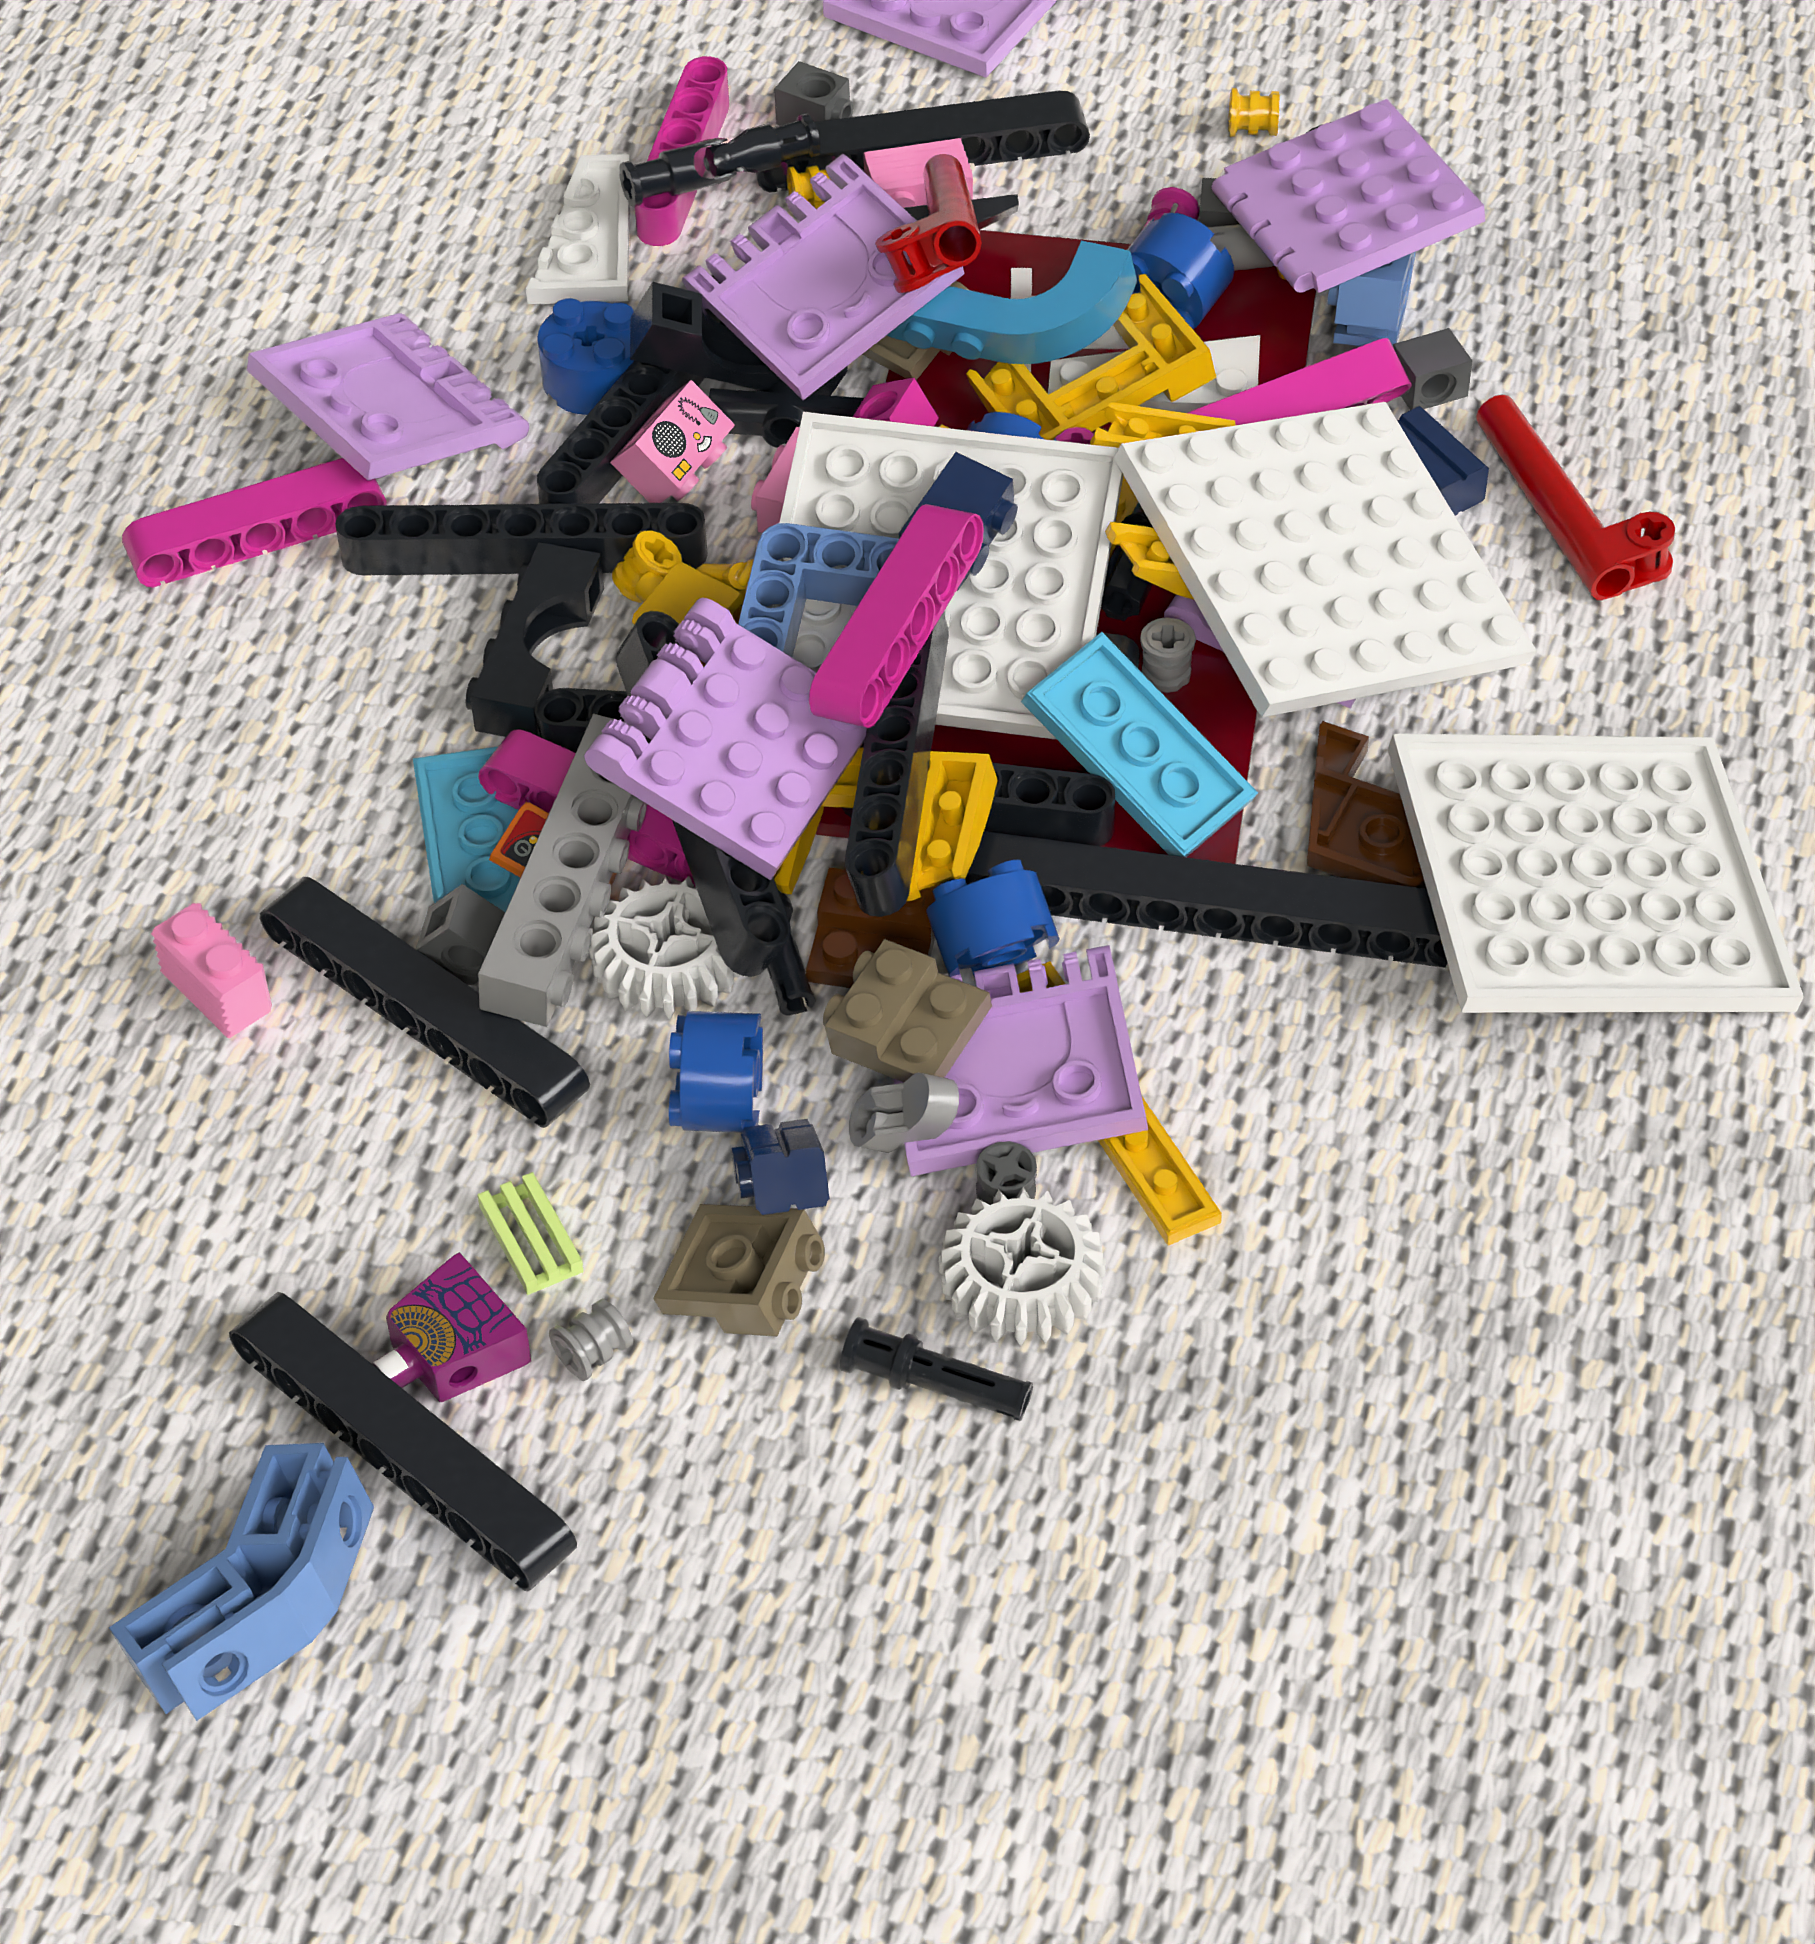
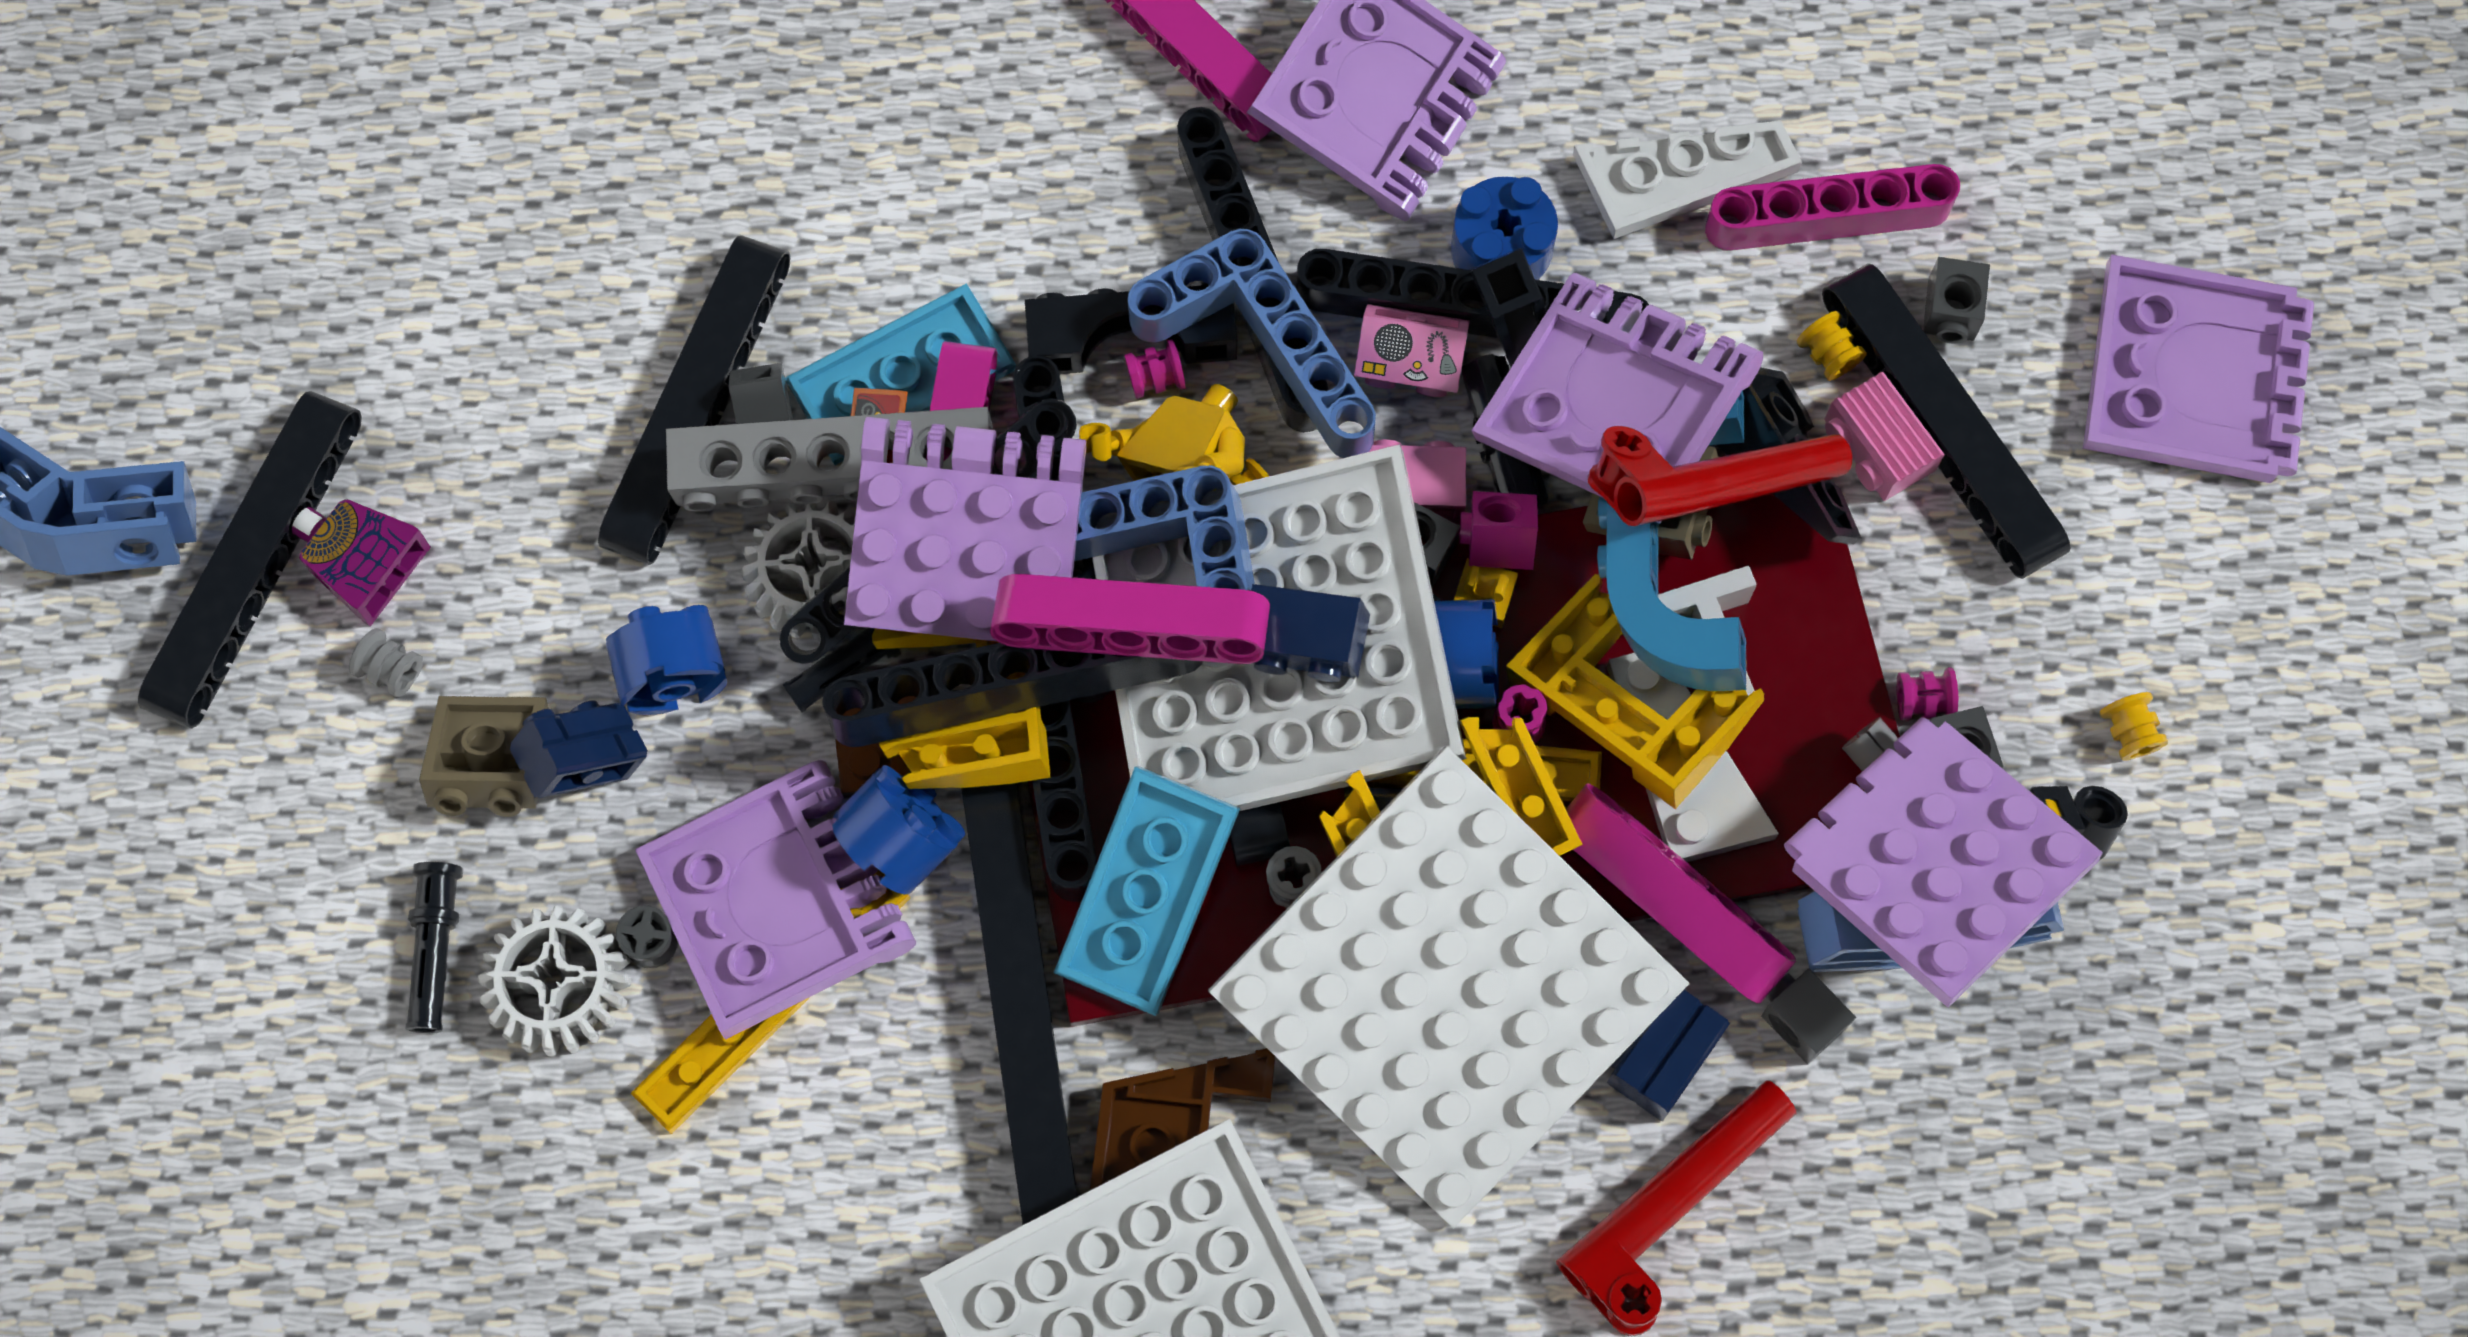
camera: 70 degrees right, 20 degrees up
(212, 969) = (668, 224): bright pink brick -> none
(513, 1197) = (475, 562): yellowish green tile -> none
(590, 636) = (1155, 370): none -> dark pink bush
(621, 501) = (1272, 326): none -> medium blue beam
(649, 553) = (1263, 394): yellow bush -> none
(752, 151) = (1809, 263): black piece -> none
(903, 1014) = (774, 792): dark tan plate -> none
(904, 1112) = (674, 827): light grey piece -> none
(1182, 264) = (1807, 722): blue brick -> none

